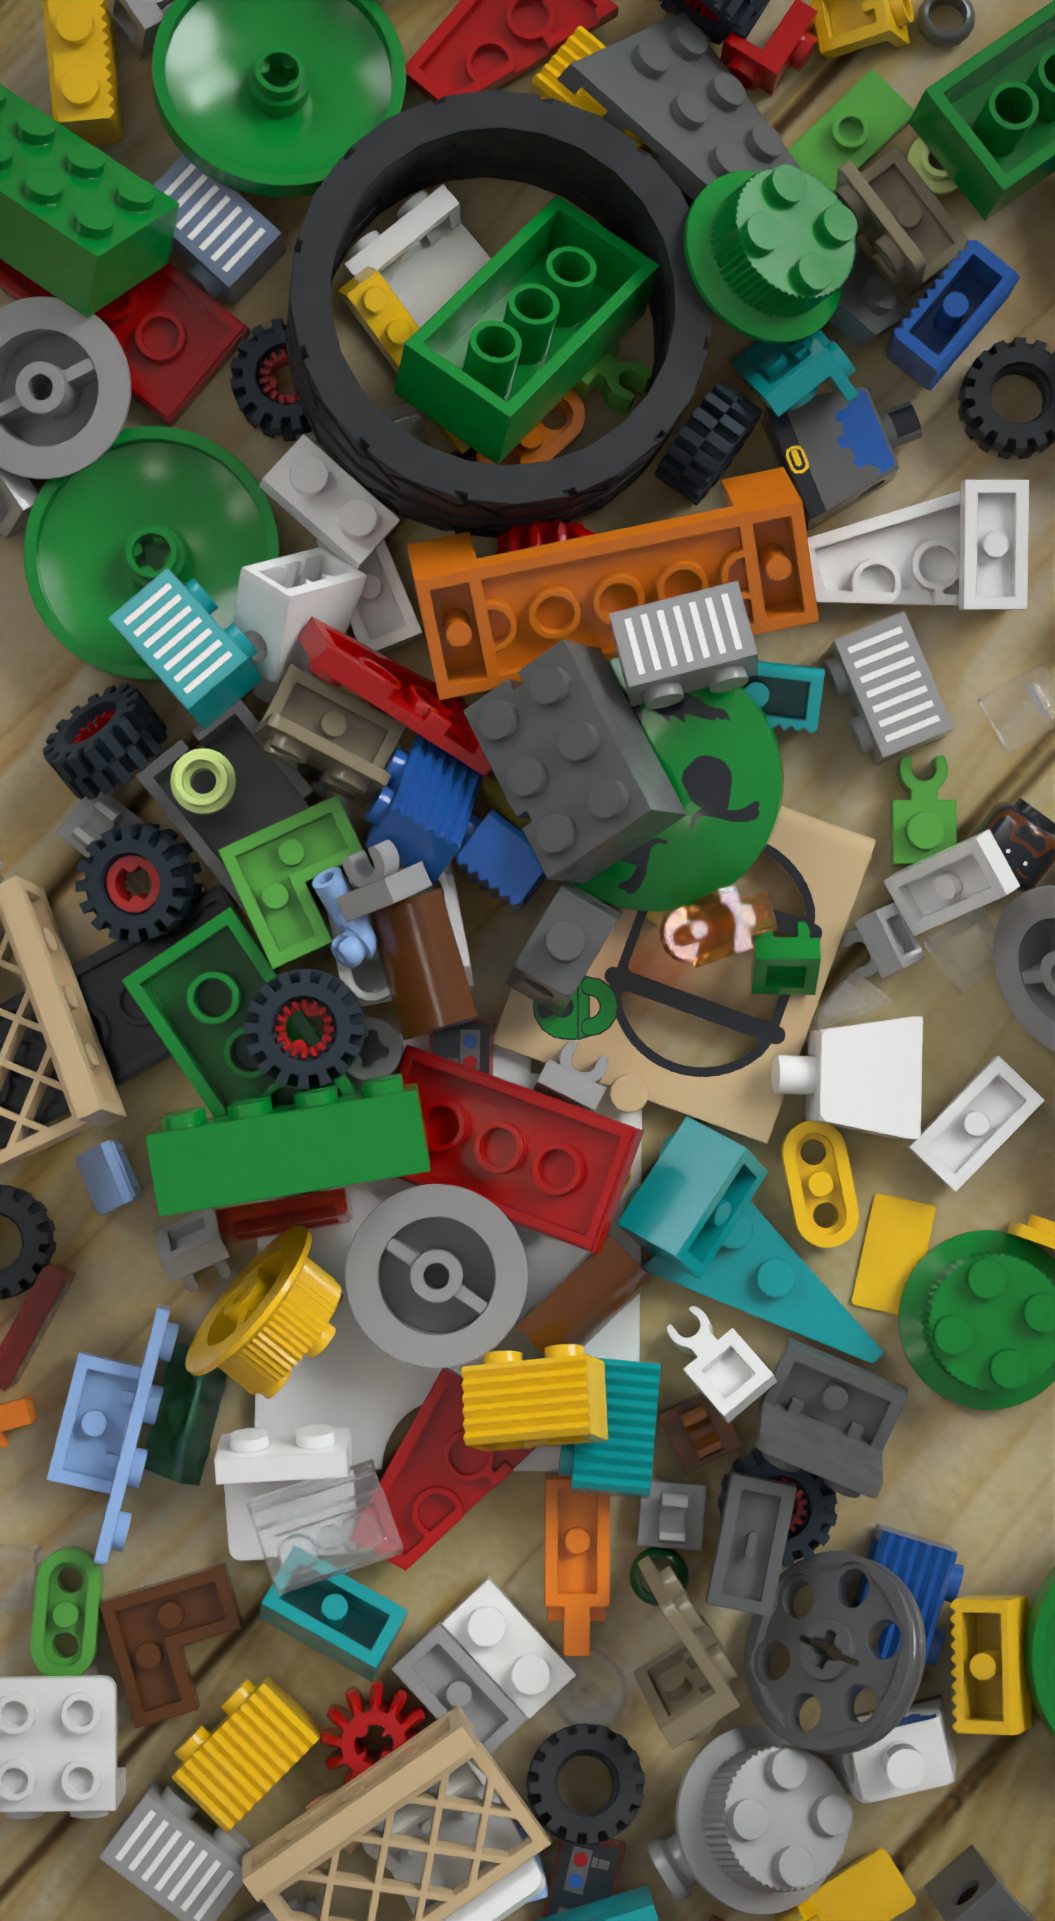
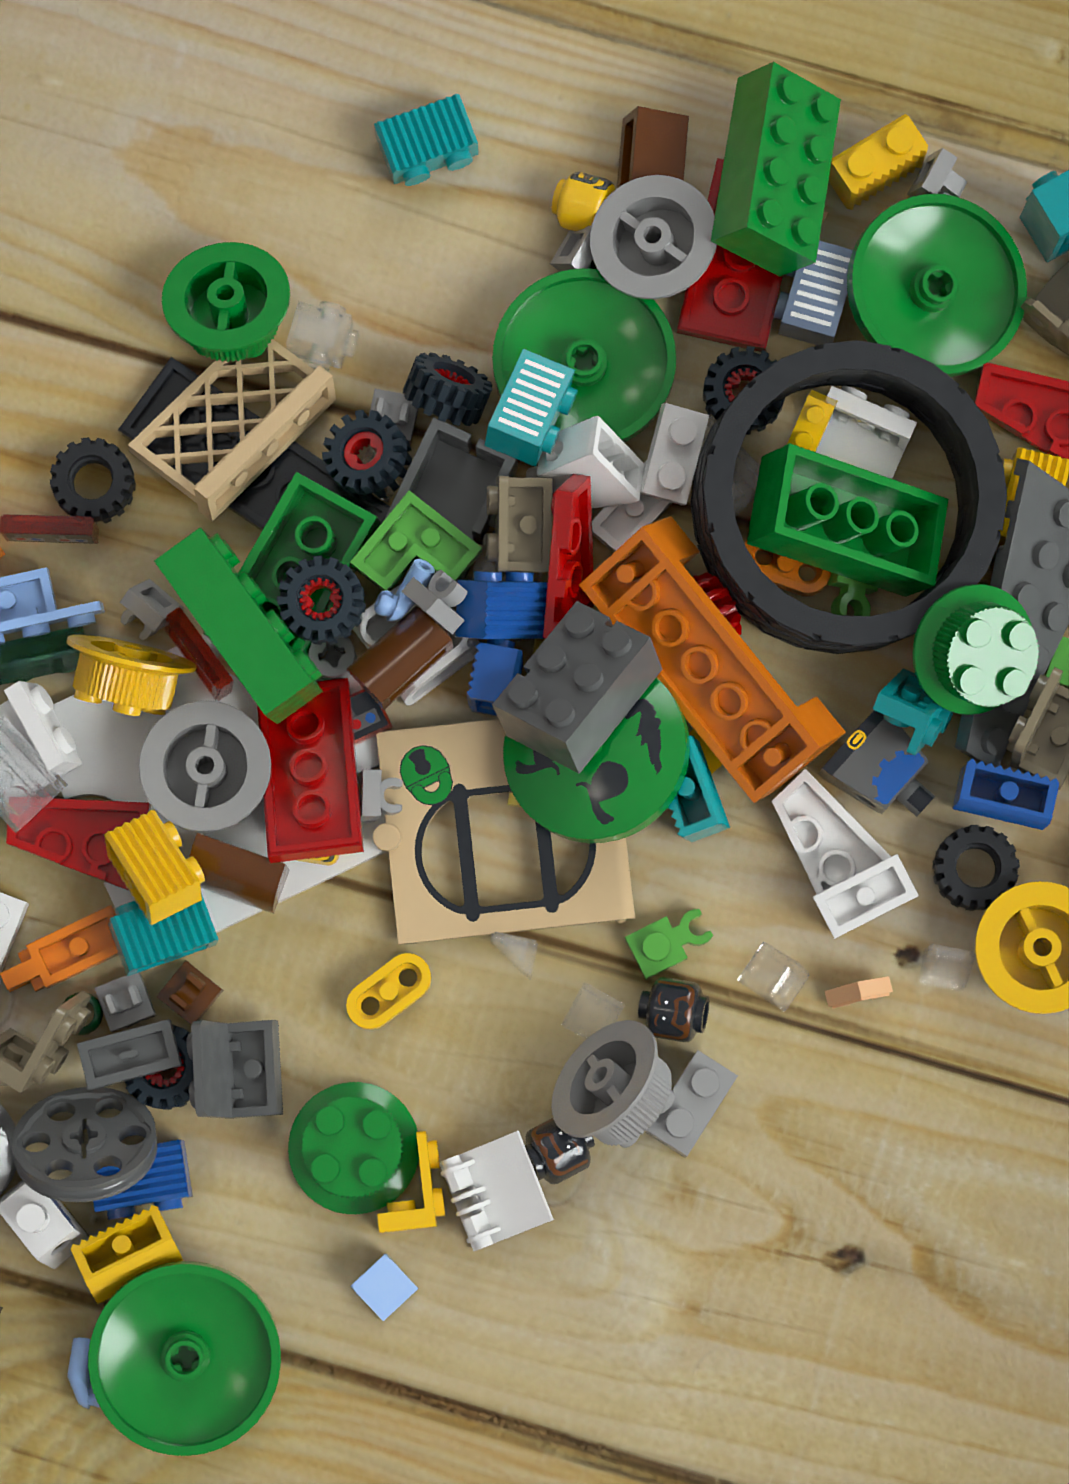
camera: 65 degrees right, 5 degrees down
(109, 1176) = (169, 530): light blue slope -> none
(185, 771) = (445, 447): yellowish green plate -> none
(563, 947) = (460, 744): dark grey torso -> none
(684, 645) = (687, 718): light grey brick -> none
(692, 1197) = (338, 909): teal brick -> none
(708, 442) = (838, 677): black bush -> none
(716, 926) = (519, 833): clear orange hips -> none
(723, 1368) = (236, 986): white plate -> none
(770, 1280) = (312, 973): teal wing -> none
(786, 963) = (520, 893): green tile -> none
(859, 1077) = (471, 981): white torso -> none
(887, 689) = (737, 876): light grey brick -> none
(887, 940) = (571, 956): light grey tile -> none
(892, 1247) = (373, 1062): yellow sticker -> none
(951, 883) = (628, 977): white plate -> none
(975, 1123) = (478, 1074): white plate -> none

